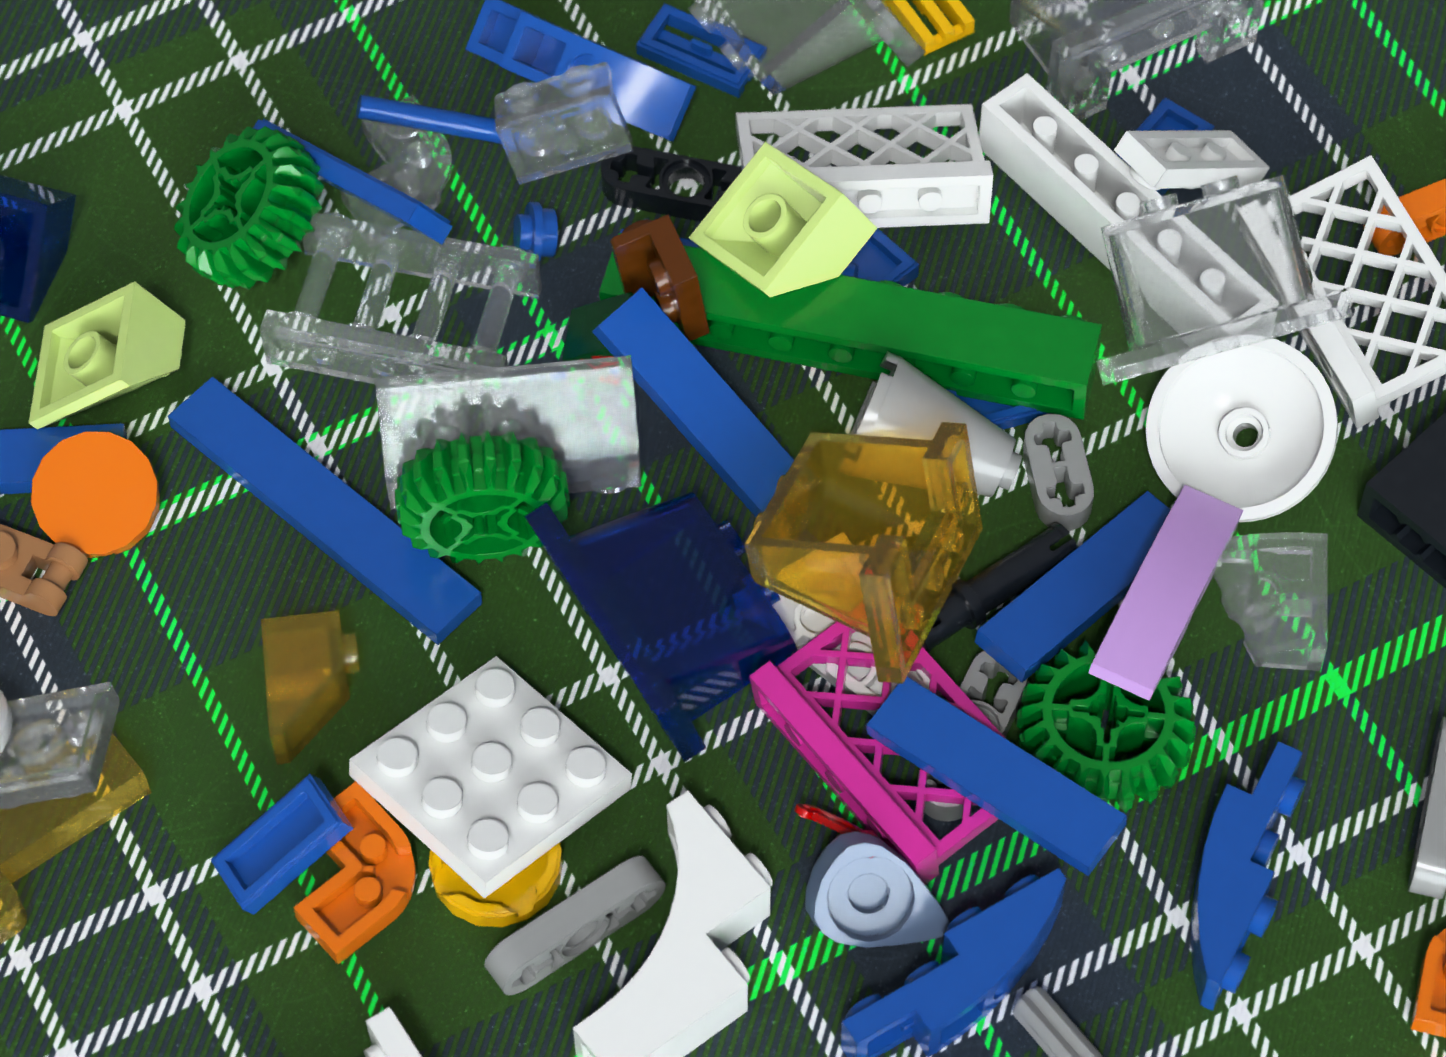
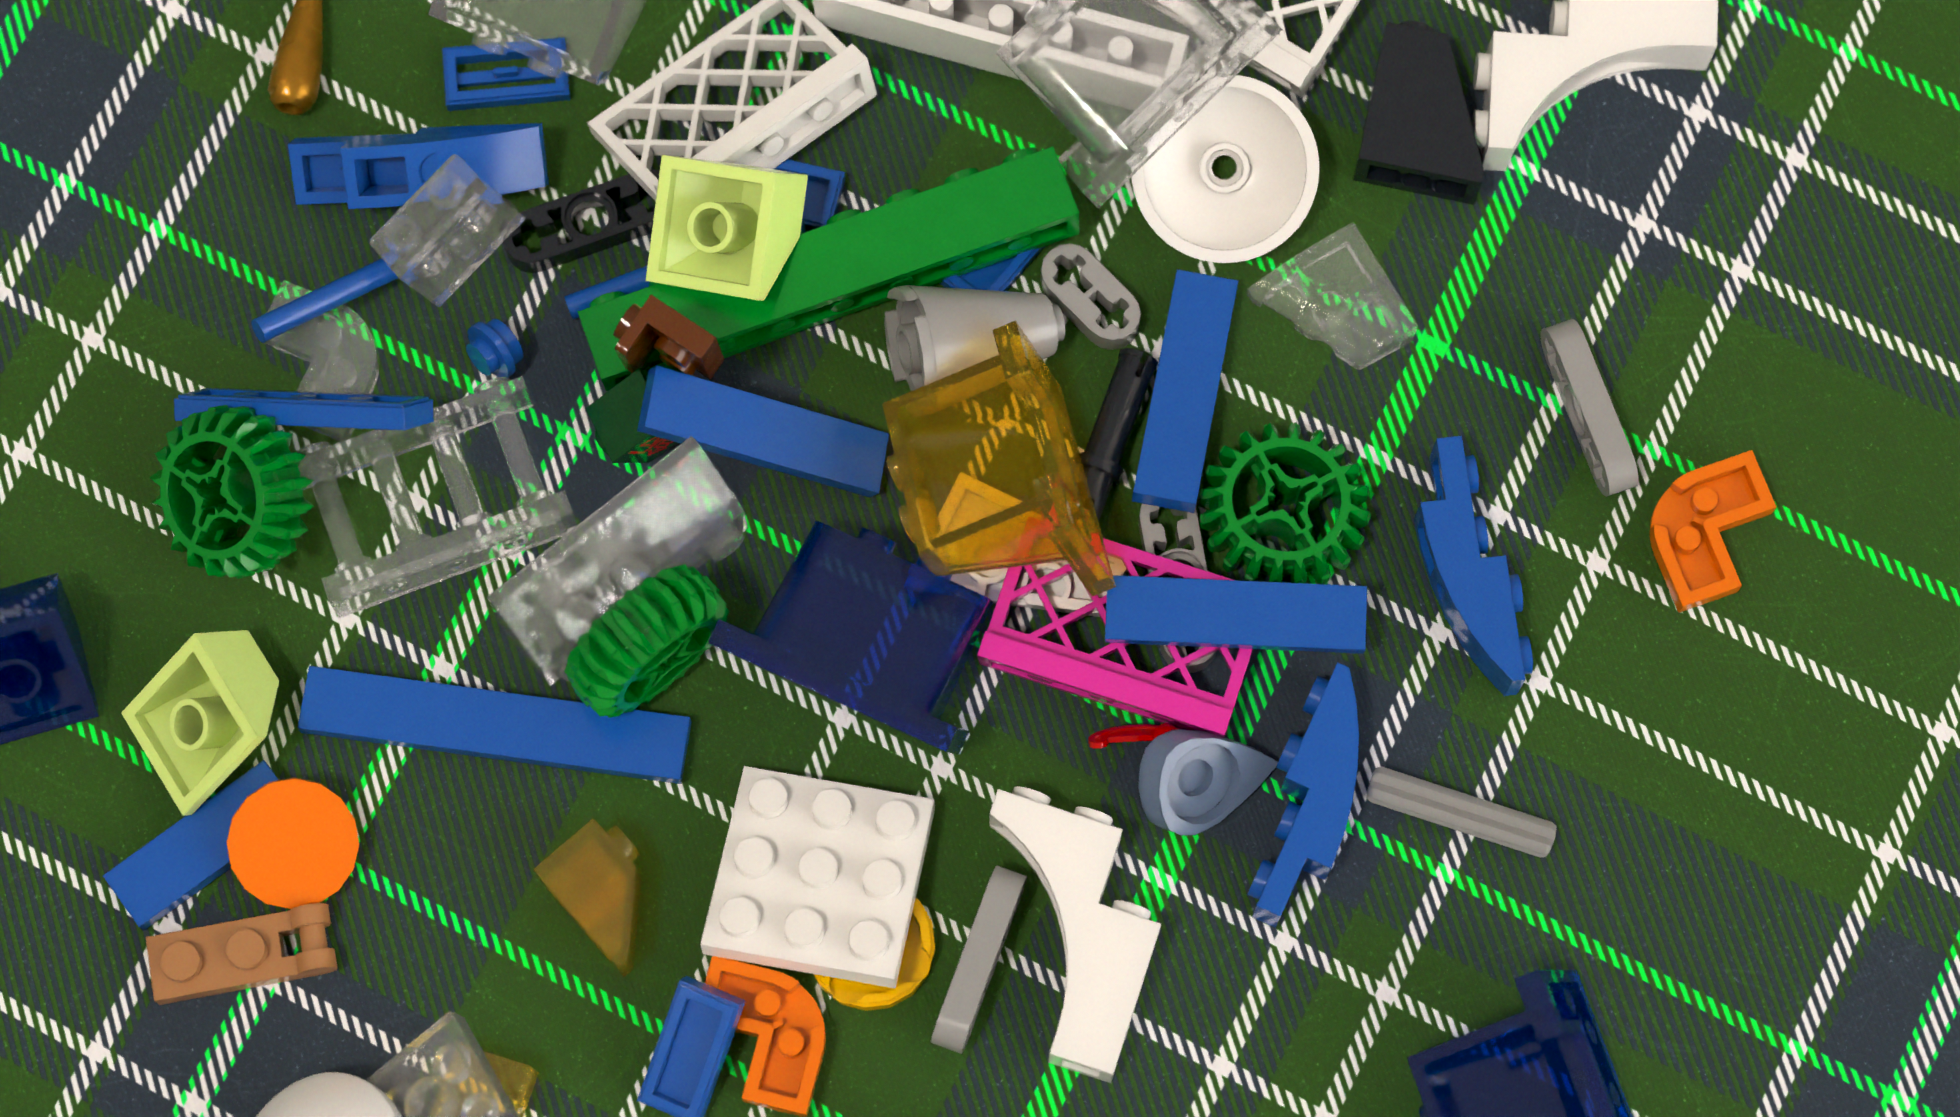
camera: 35 degrees left, 15 degrees up
(1165, 593) = (1265, 362): lavender slope -> none

